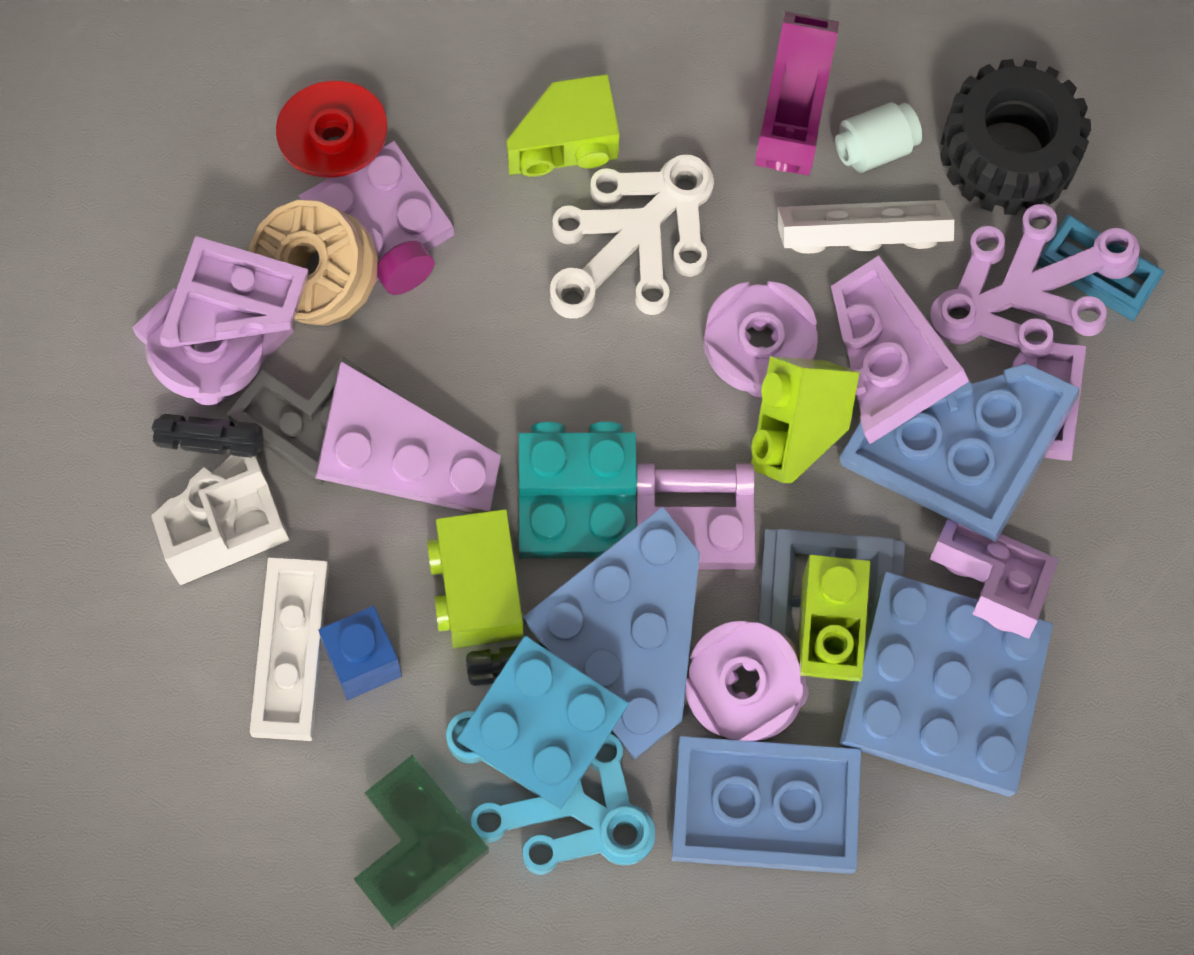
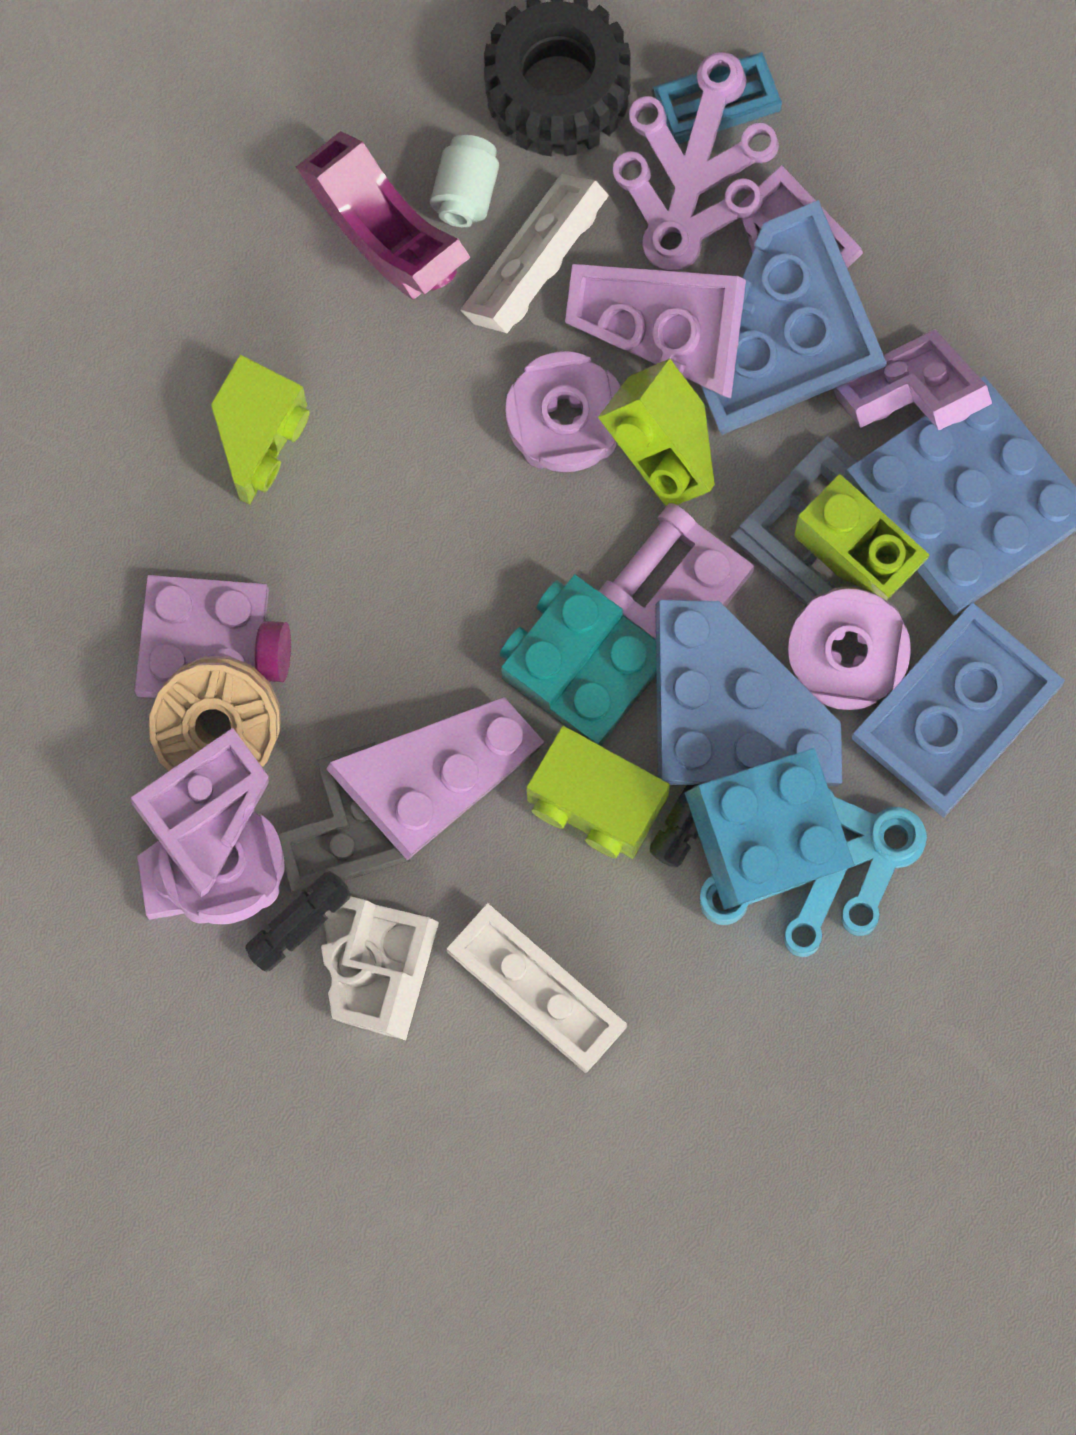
camera: 45 degrees left, 5 degrees up
(326, 112) = (82, 598): red dish -> none
(360, 652) = (588, 933): blue brick -> none
(433, 847) = (788, 989): clear green plate -> none
(635, 229) = (389, 437): white plant -> none

